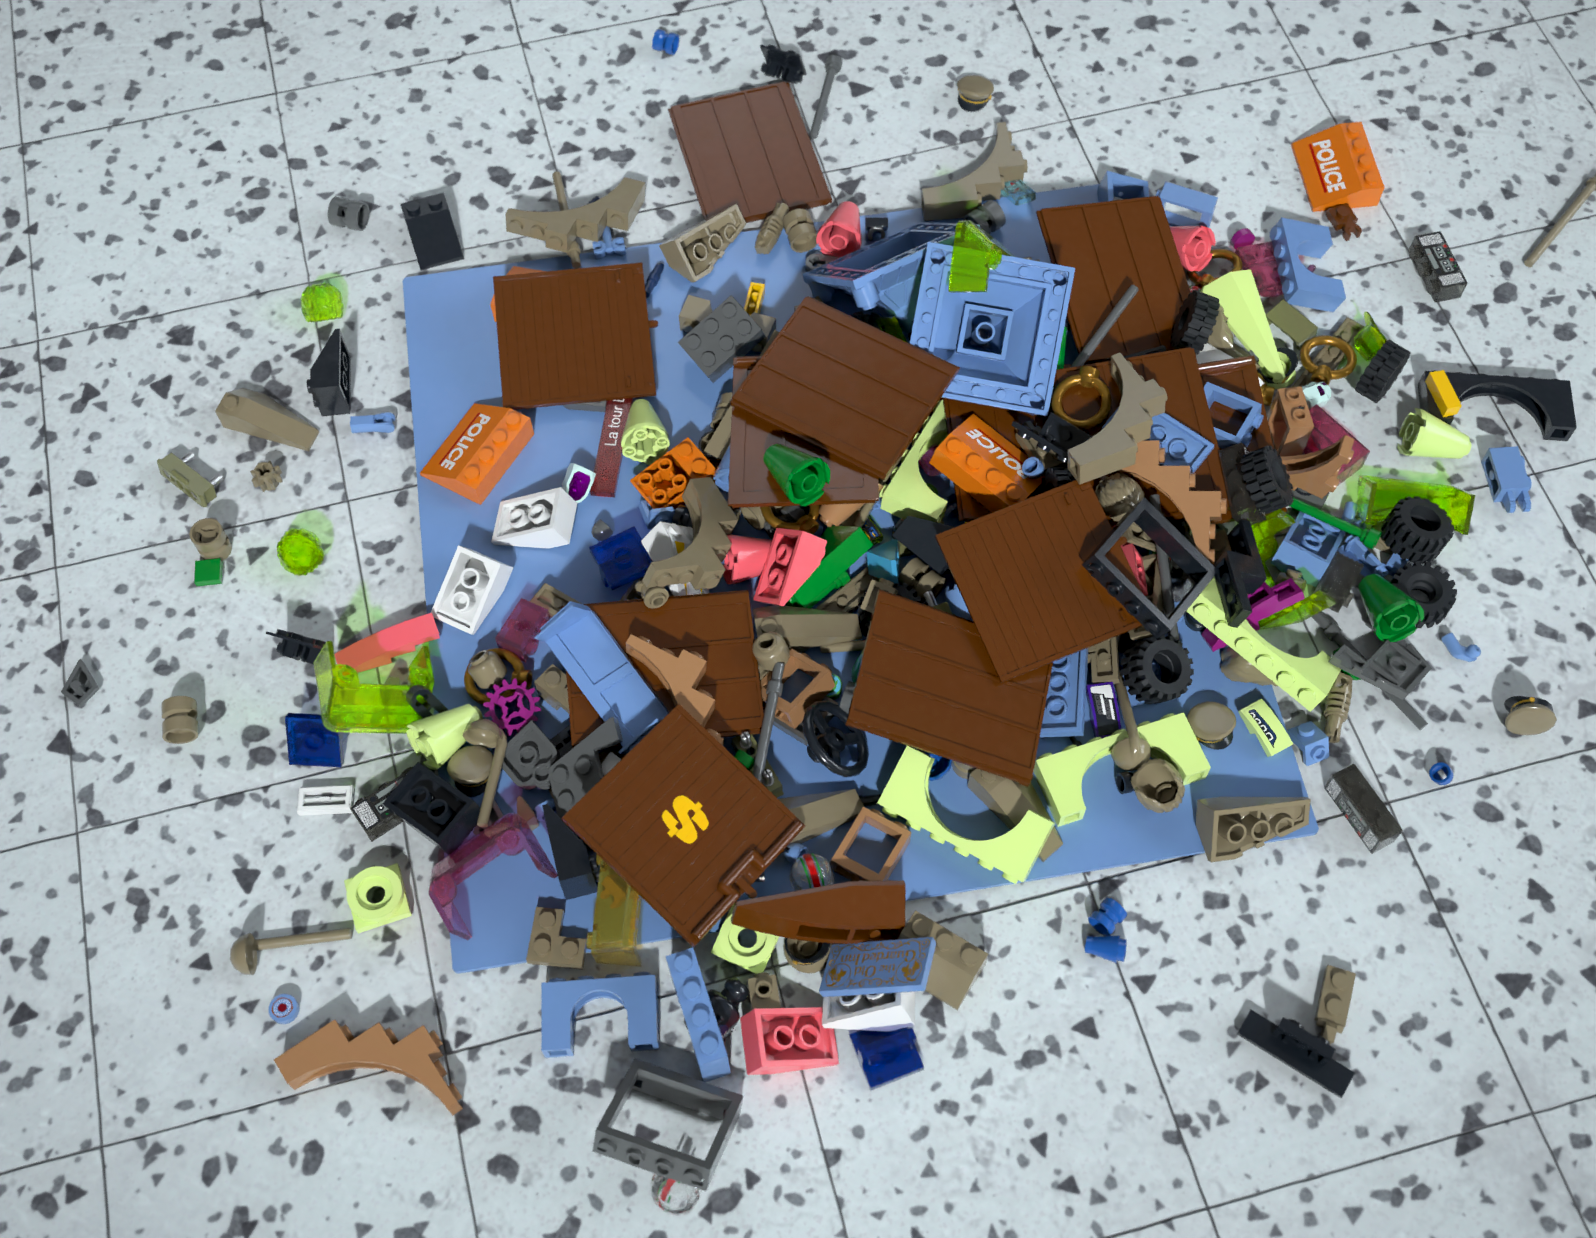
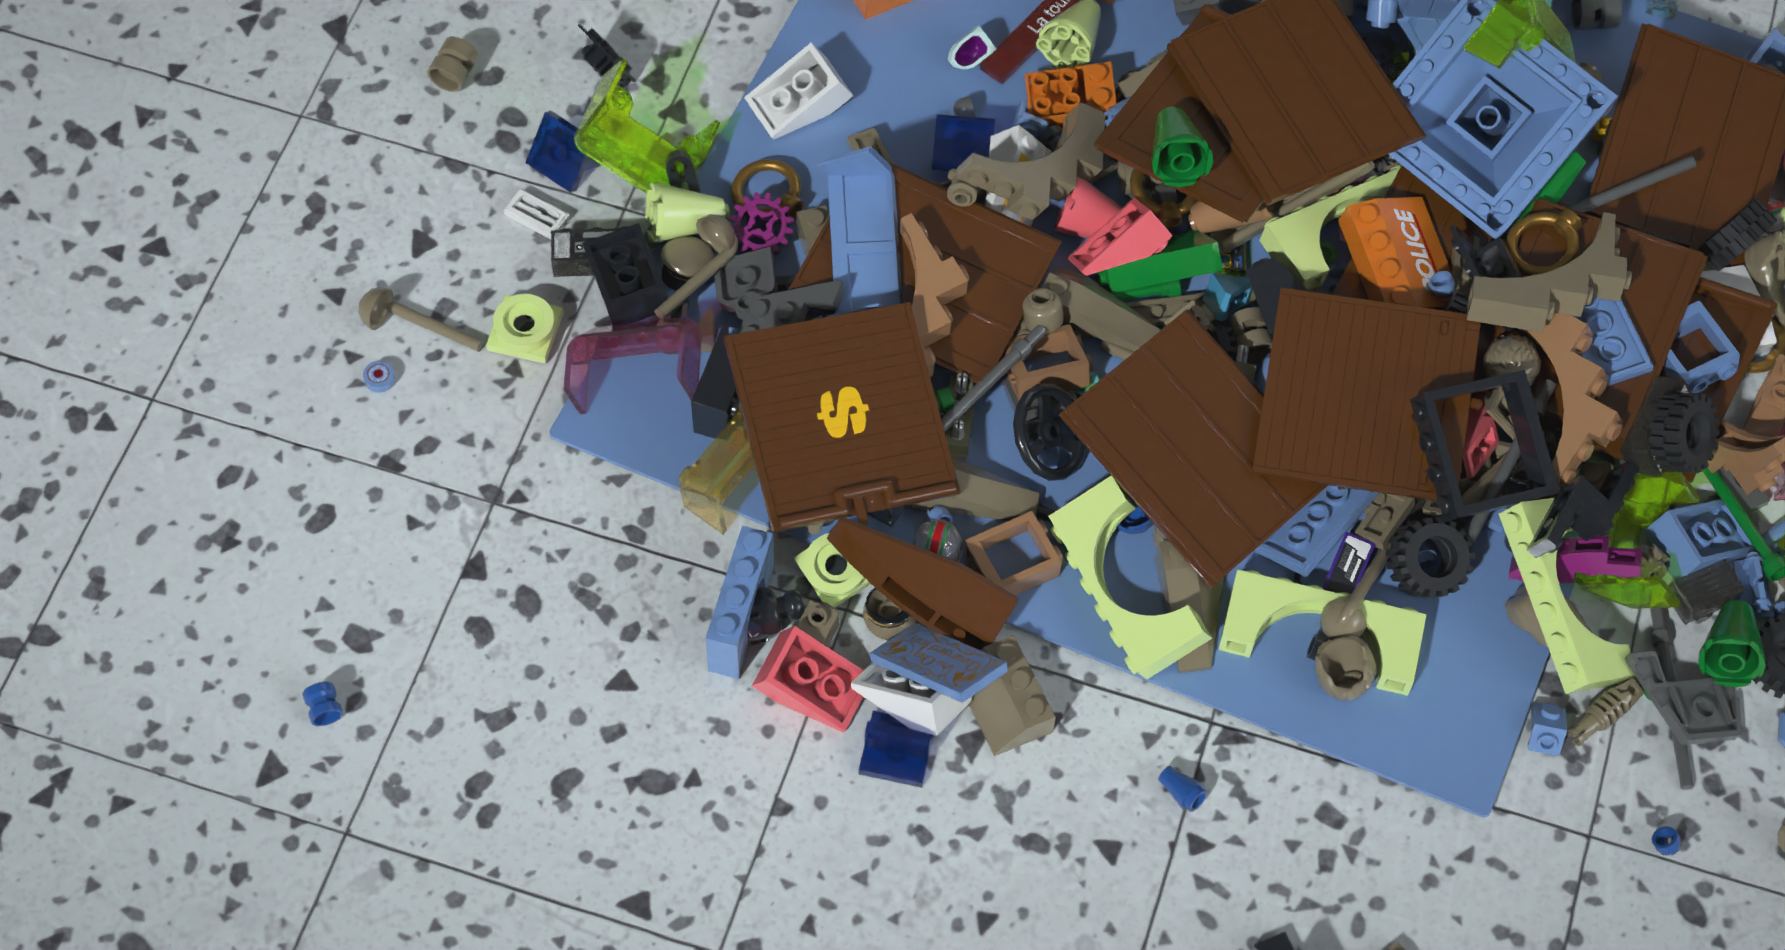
camera: 30 degrees right, 0 degrees up
(336, 1050) = (401, 437): medium nougat arch -> none
(388, 643) = (682, 101): coral slope -> none
(487, 669) = (762, 176): dark tan head -> none
(521, 628) = (806, 156): clear pink brick -> none
(536, 520) = (907, 63): white slope -> none
(547, 944) = (649, 462): dark tan plate -> none
(564, 999) = (631, 518): medium blue arch -> none
(673, 1196) = (616, 738): clear helmet -> none
(681, 1091) = (674, 652): dark grey window -> none
(1107, 917) = (1207, 759): blue wheel -> none
(1212, 724) = (1451, 647): dark tan piece -> none
(1240, 823) = (1409, 757): dark tan wedge -> none
(1266, 726) = (1508, 683): yellowish green slope -> none
(1363, 808) = (1551, 821): clear smoke brick -> none

